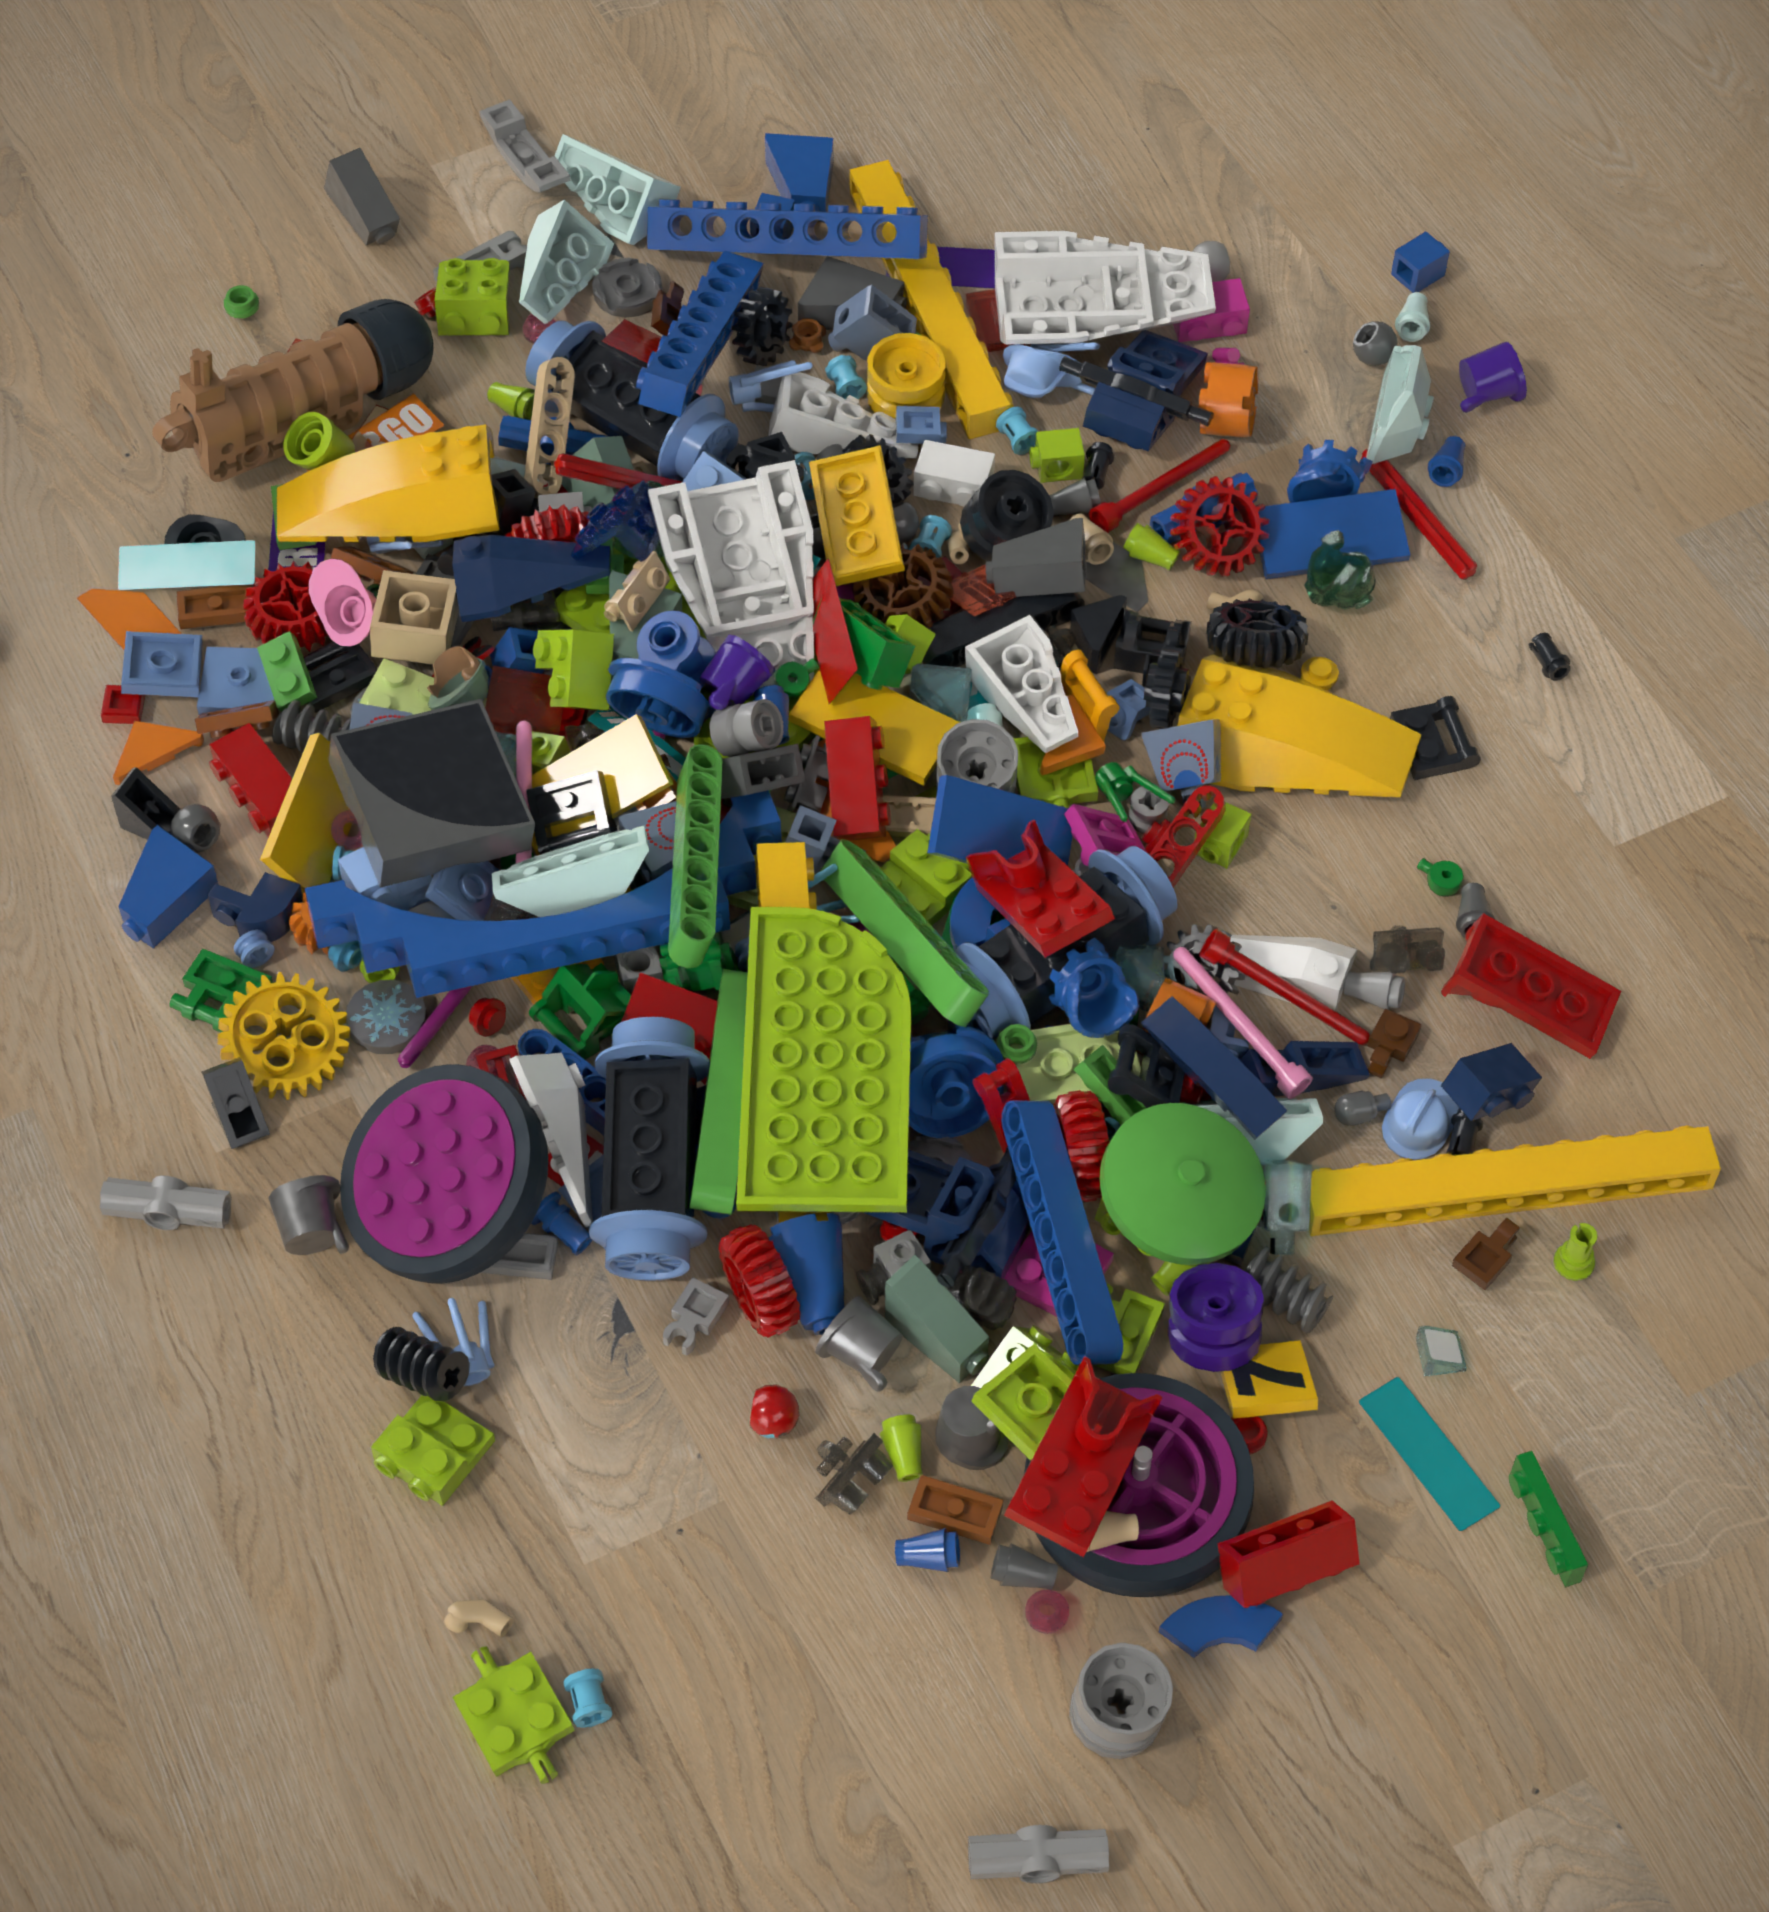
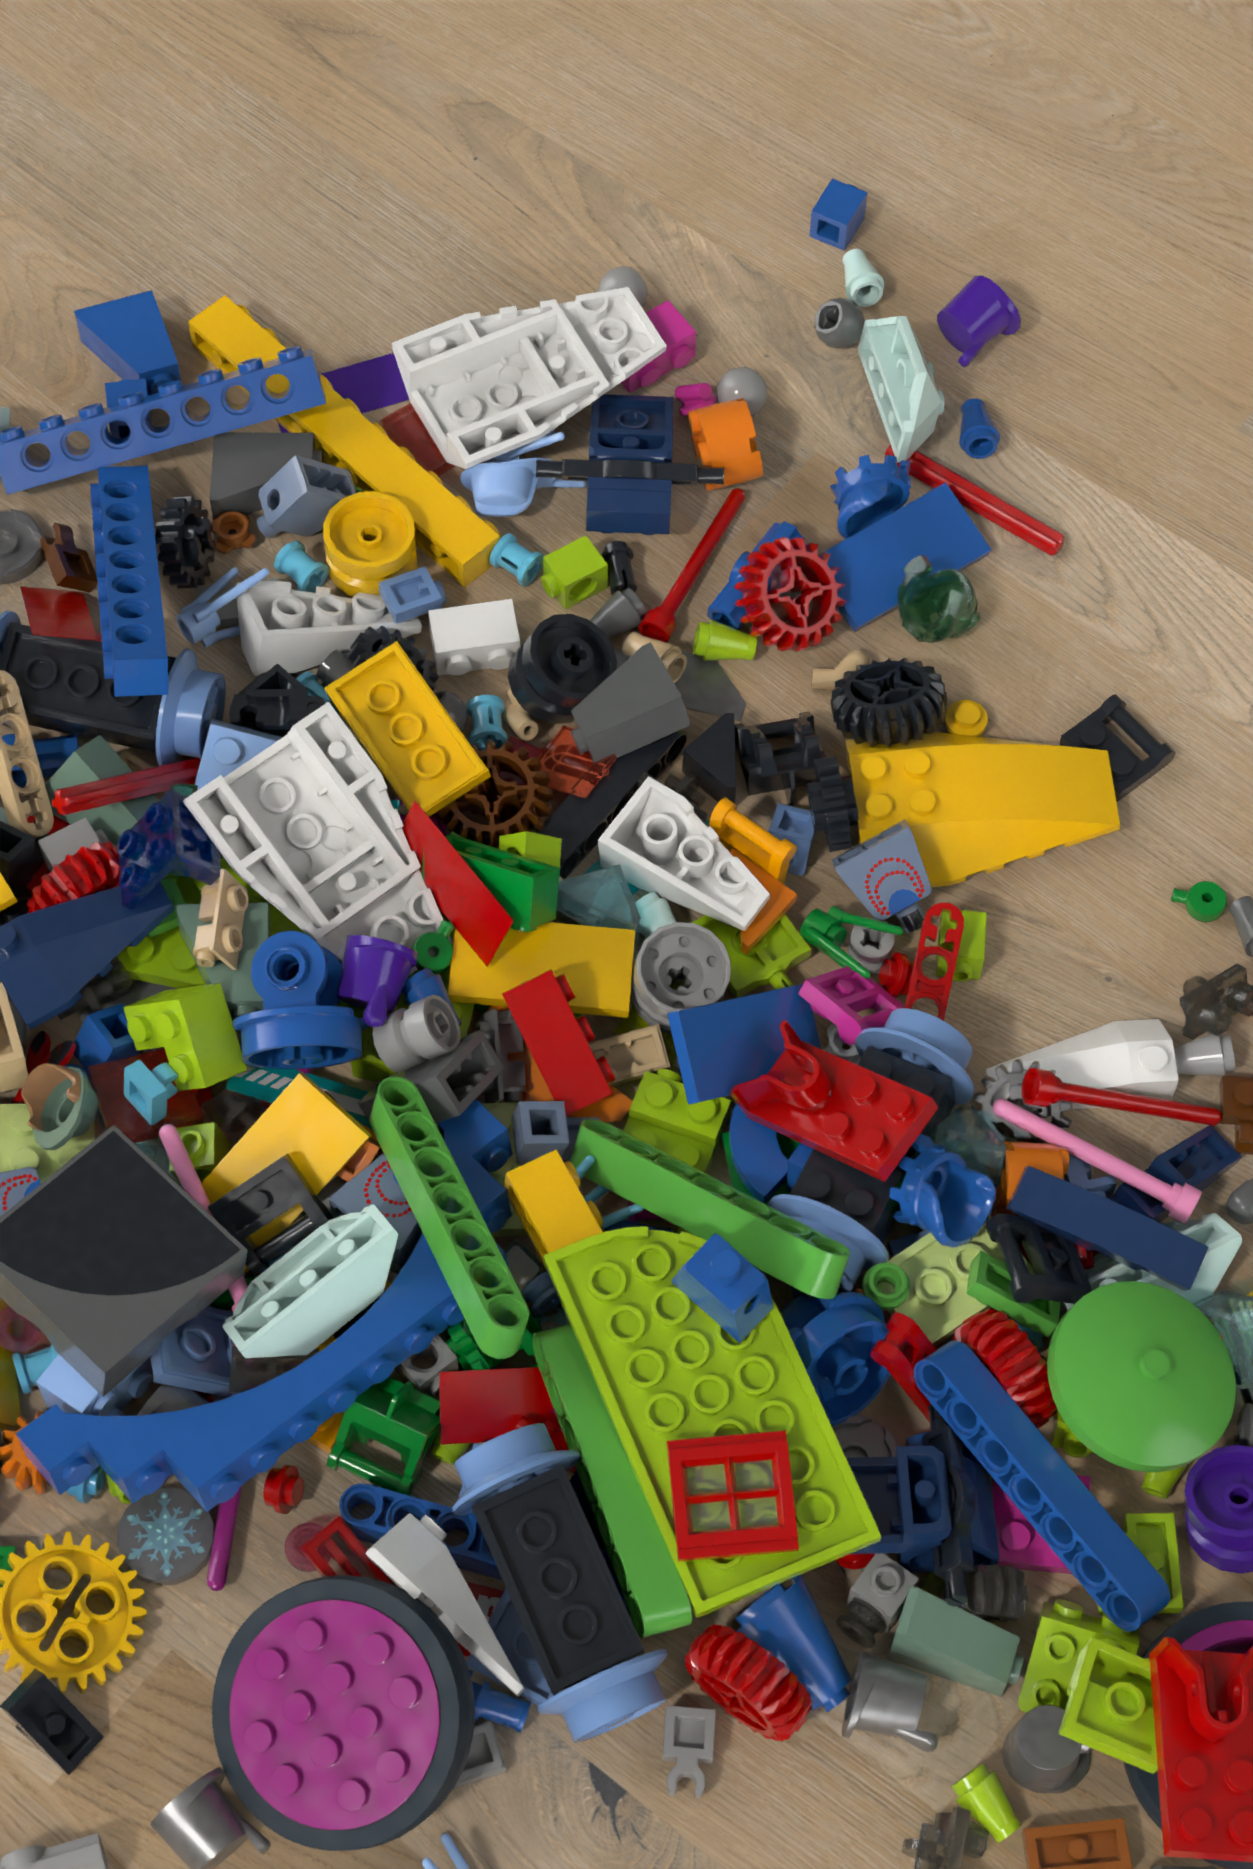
camera: 25 degrees left, 5 degrees up
(527, 693) = (149, 1089): none -> medium azure tile
(774, 1411) = (831, 1825): red piece -> none
(804, 1128) = (732, 1496): none -> red piece
(868, 964) = (723, 1285): none -> blue torso
(1271, 367) = (745, 384): none -> light grey piece
(1554, 663) = (1187, 611): black pin -> none

